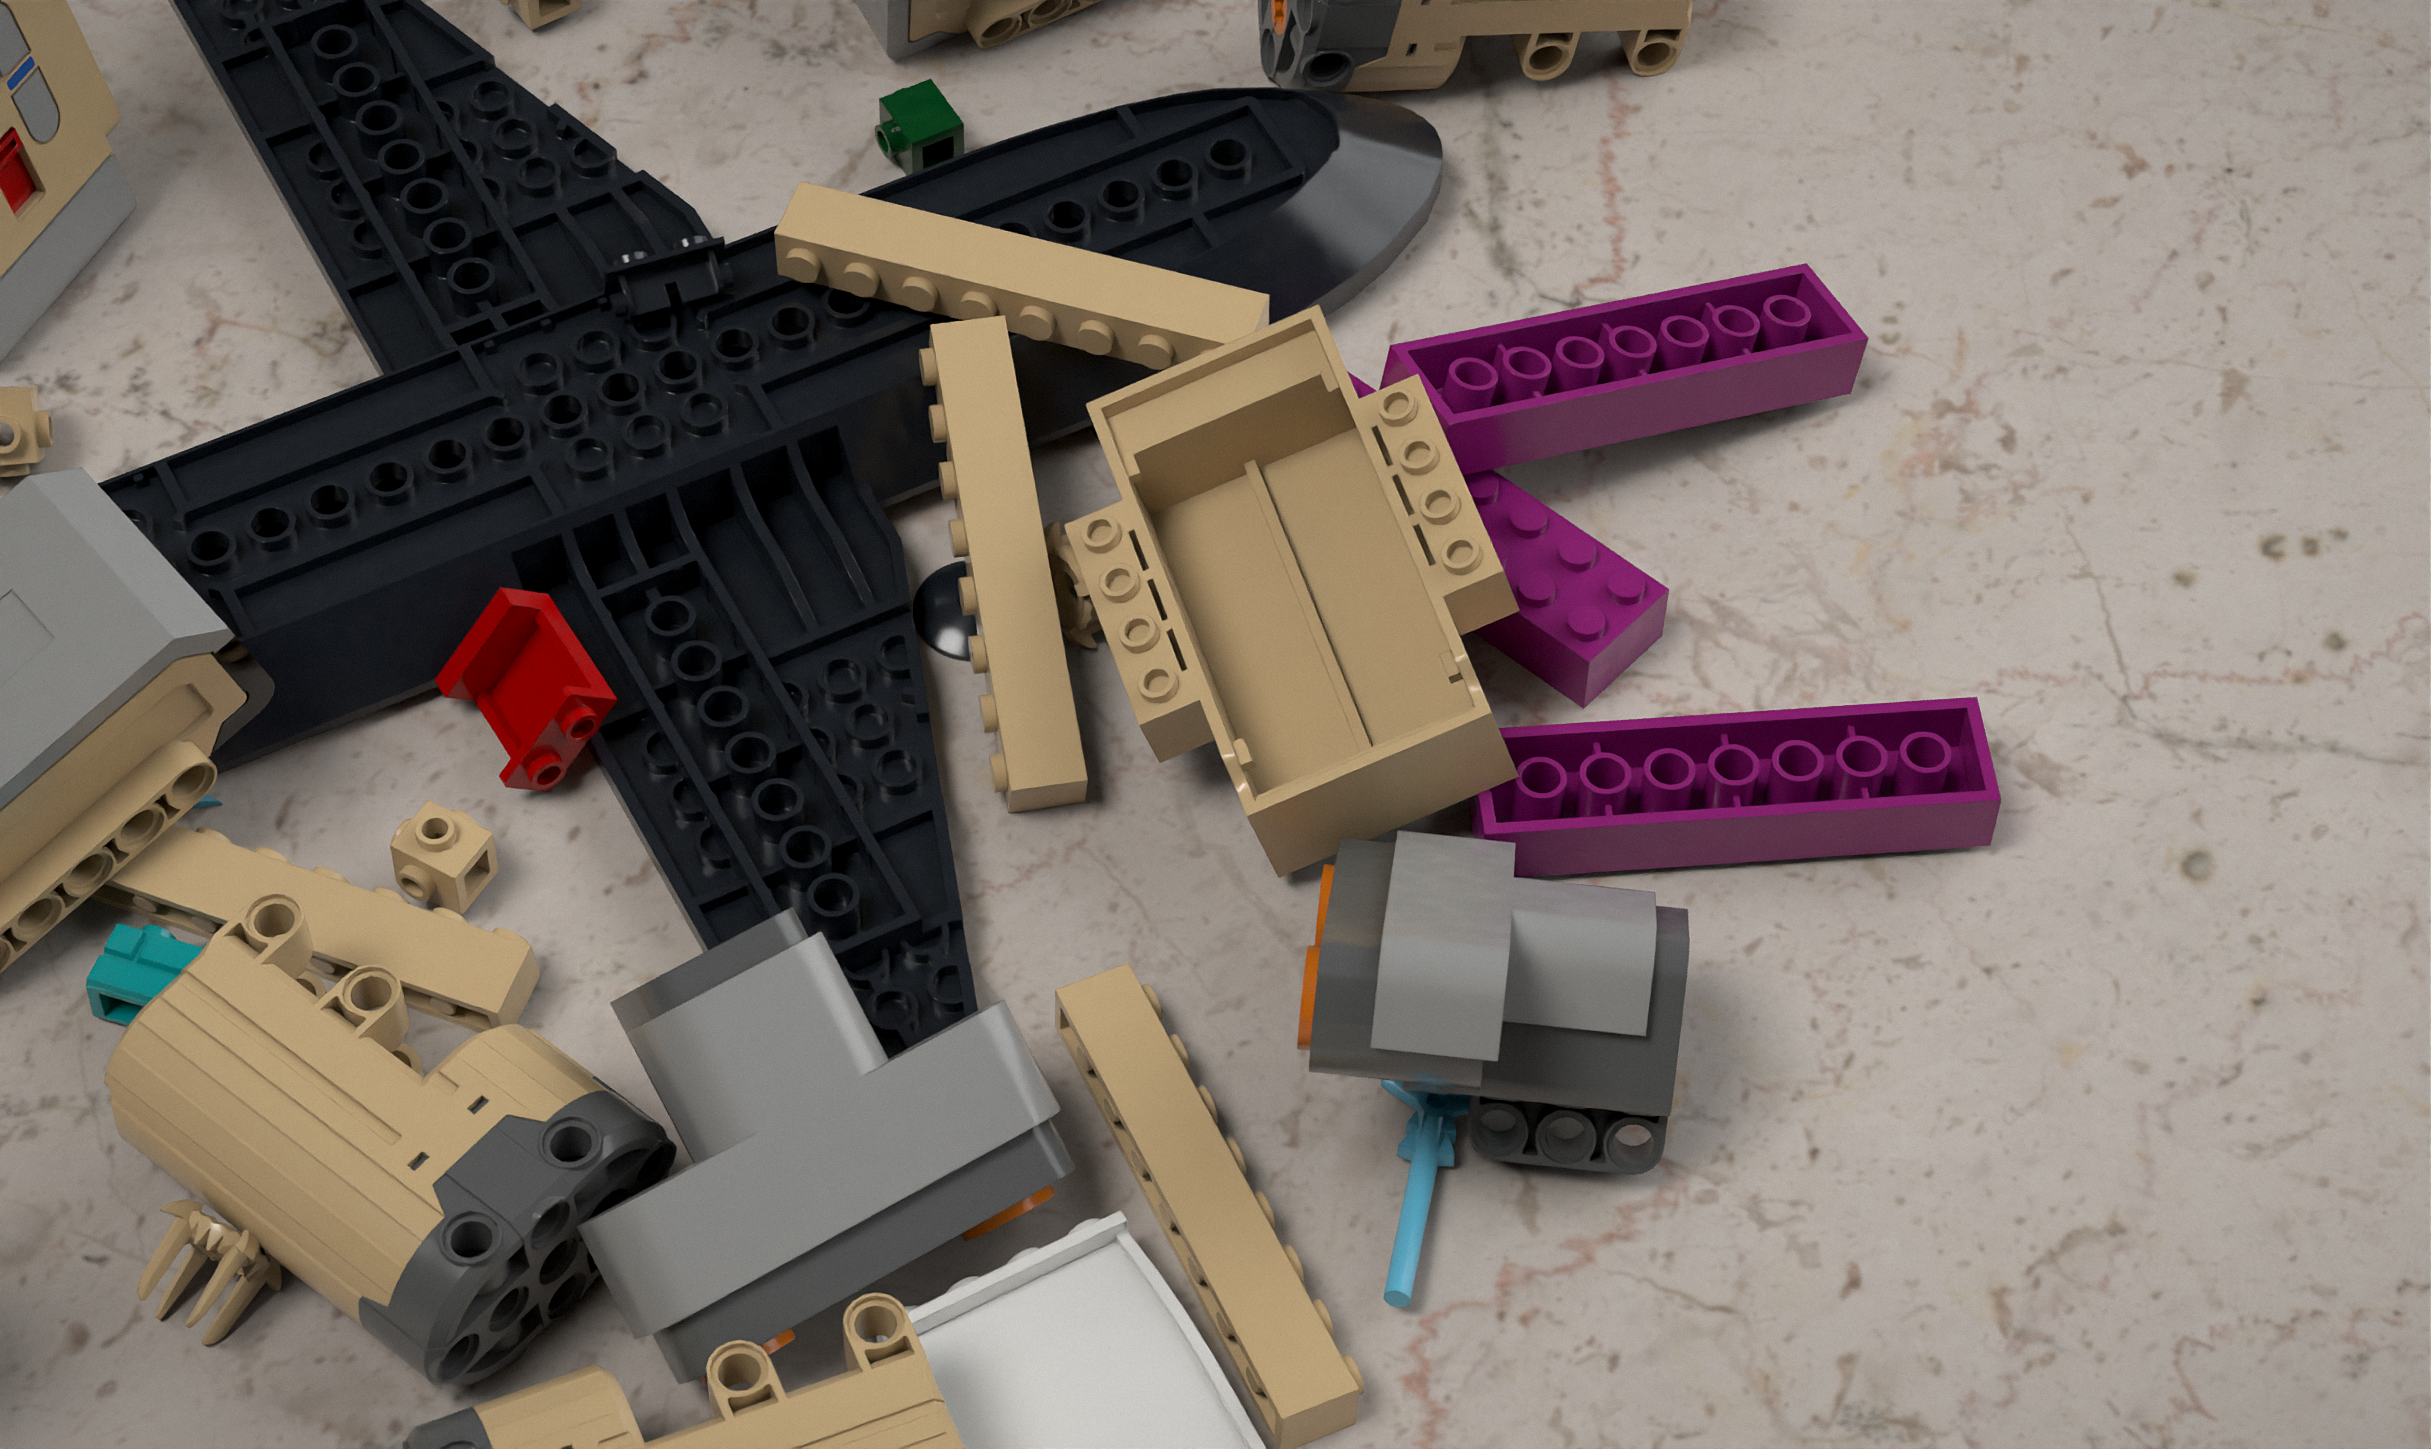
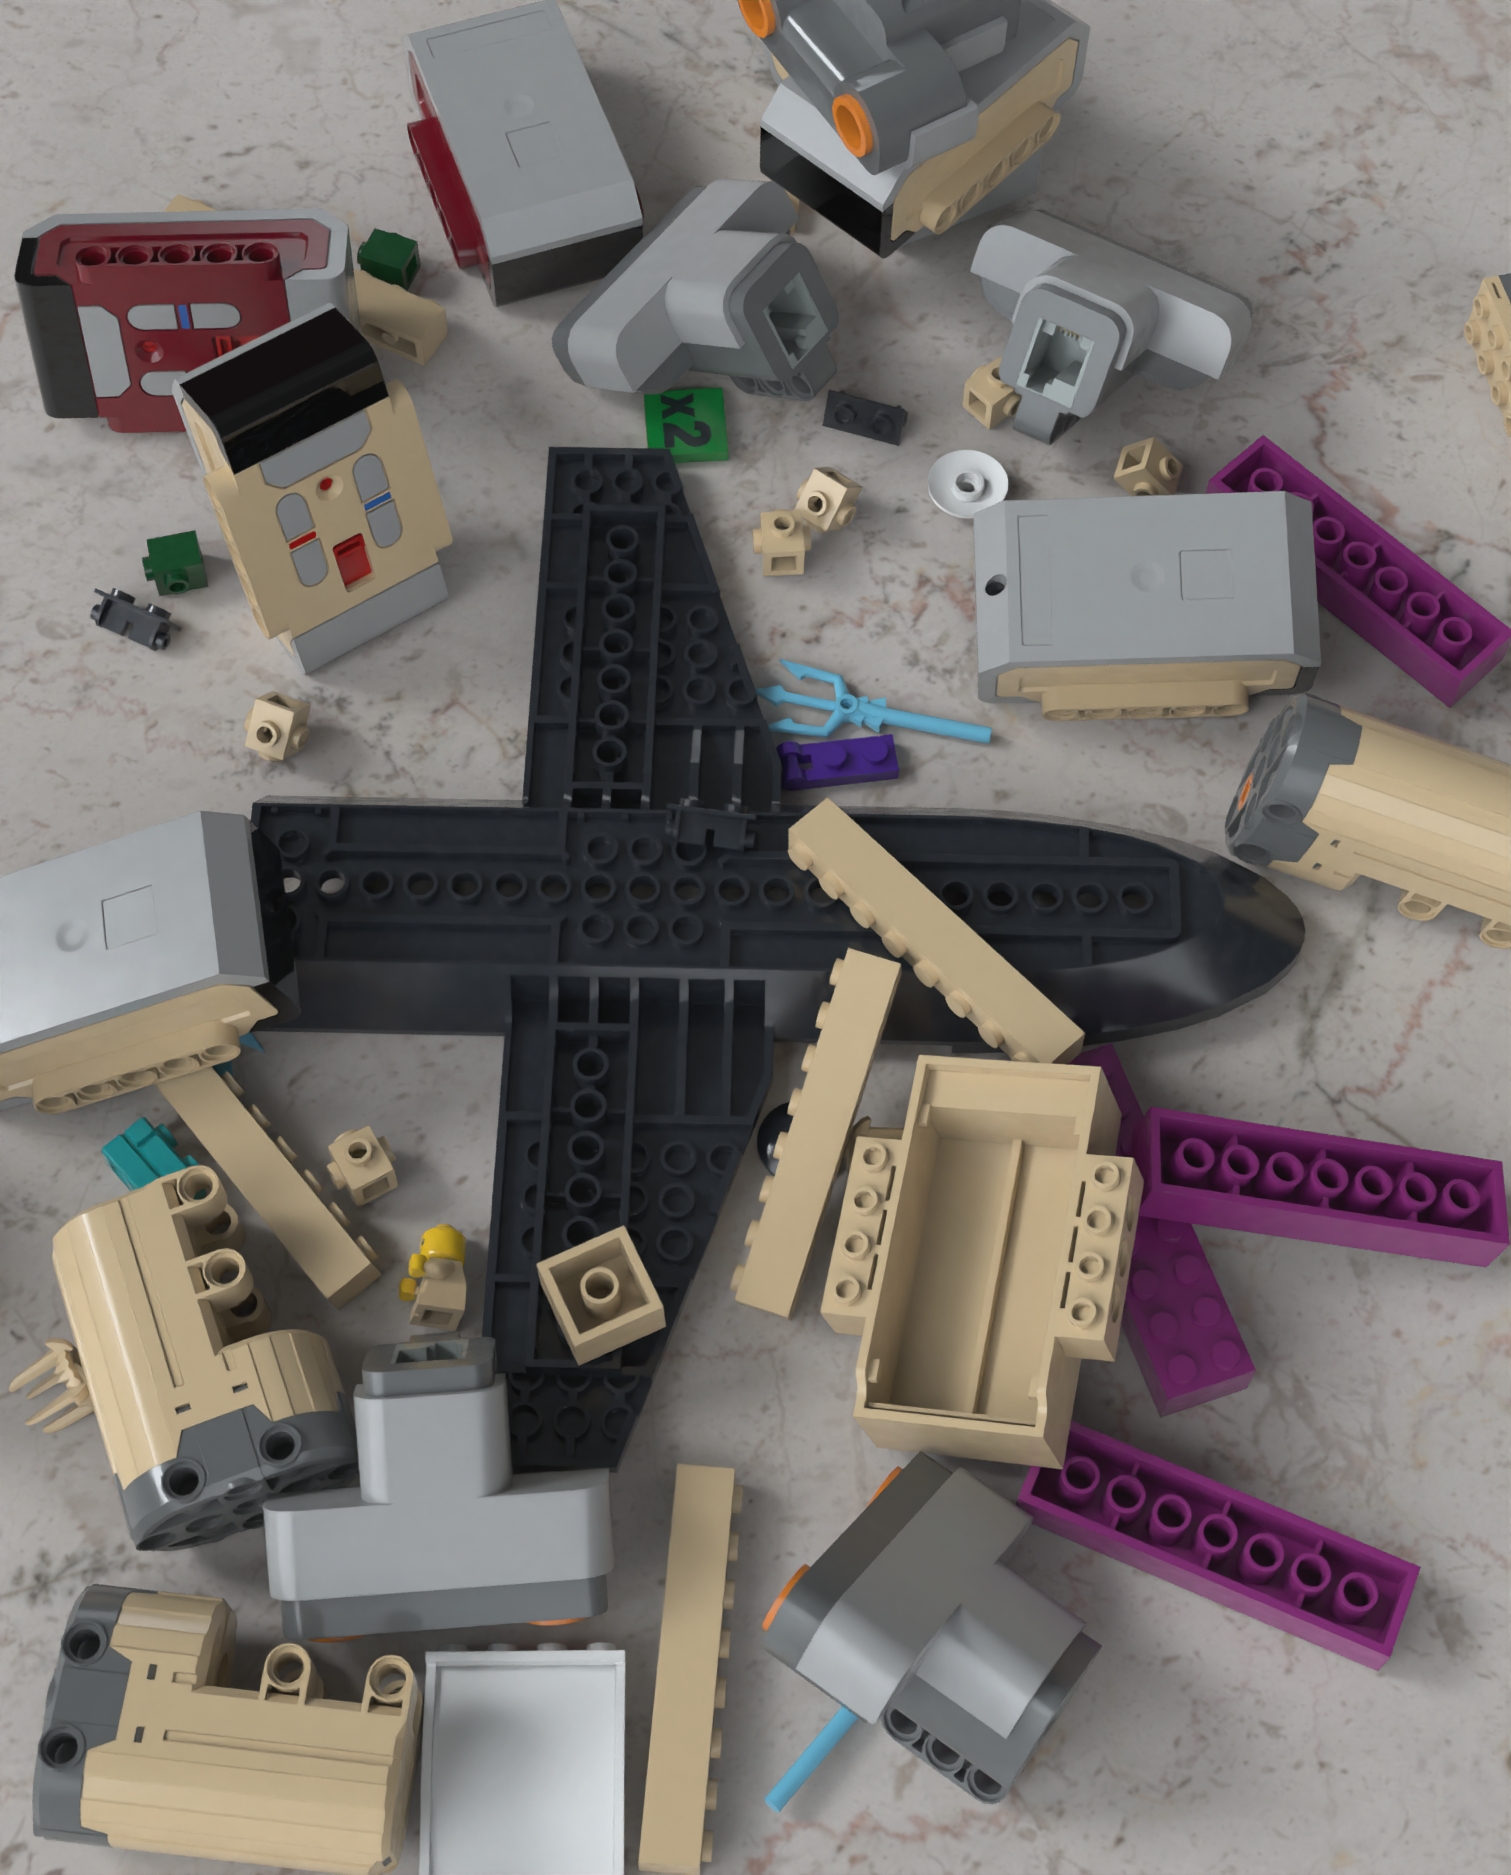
camera: 30 degrees right, 10 degrees up
(529, 685) = (482, 1071): red panel -> none
(628, 937) = (443, 1284): none -> tan piece
(734, 128) = (859, 711): none -> medium azure piece
(760, 187) = (838, 762): none -> dark purple plate
(856, 833) = (601, 1295): none -> tan brick
(919, 127) = (964, 767): dark green brick -> none

